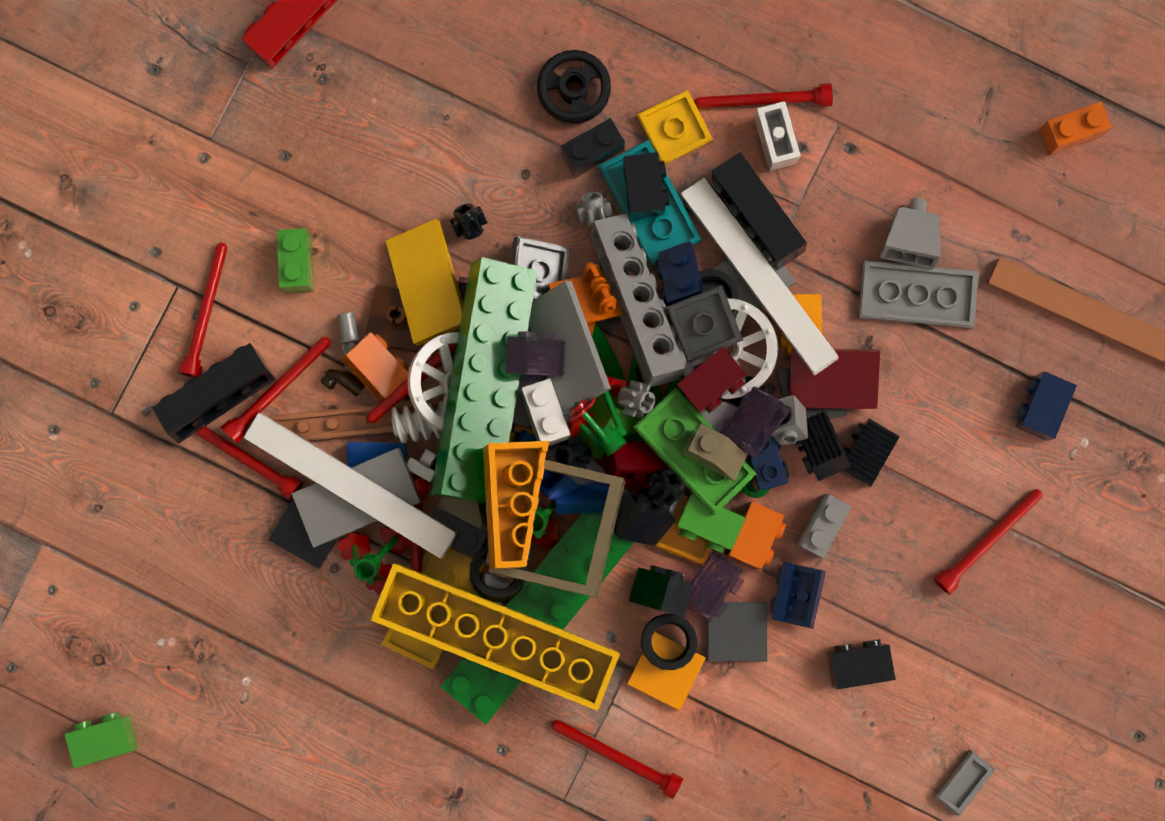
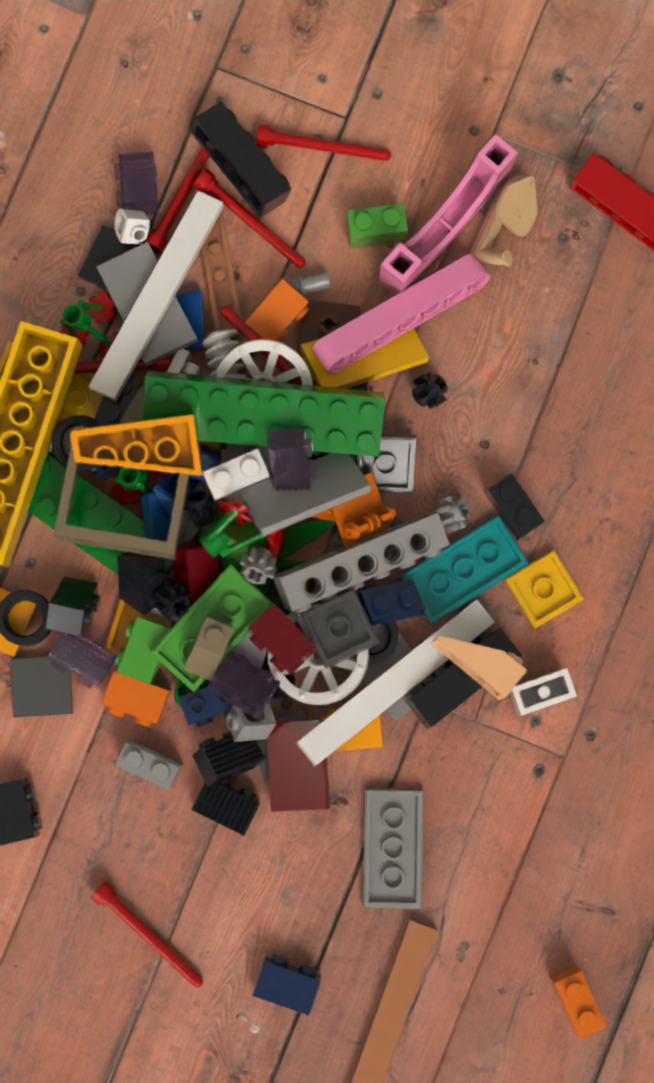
camera: 85 degrees right, 0 degrees up
(228, 499) = (138, 182): none -> clear purple brick
(273, 509) = (131, 226): none -> white plate
(288, 124) = (516, 209): none -> tan piece
(295, 187) = (414, 257): none -> bright pink arch
(343, 378) = (264, 283): dark brown arm -> none
(390, 242) = (400, 313): none -> bright pink beam
(580, 110) = (595, 501): black wheel -> none
(644, 185) = (479, 561): black brick -> none
(754, 179) = (487, 666): none -> light nougat slope
(797, 595) = (80, 743): dark blue bracket -> none
(819, 95) = (589, 734): red piece -> none
(914, 236) = (451, 839): light grey torso -> none

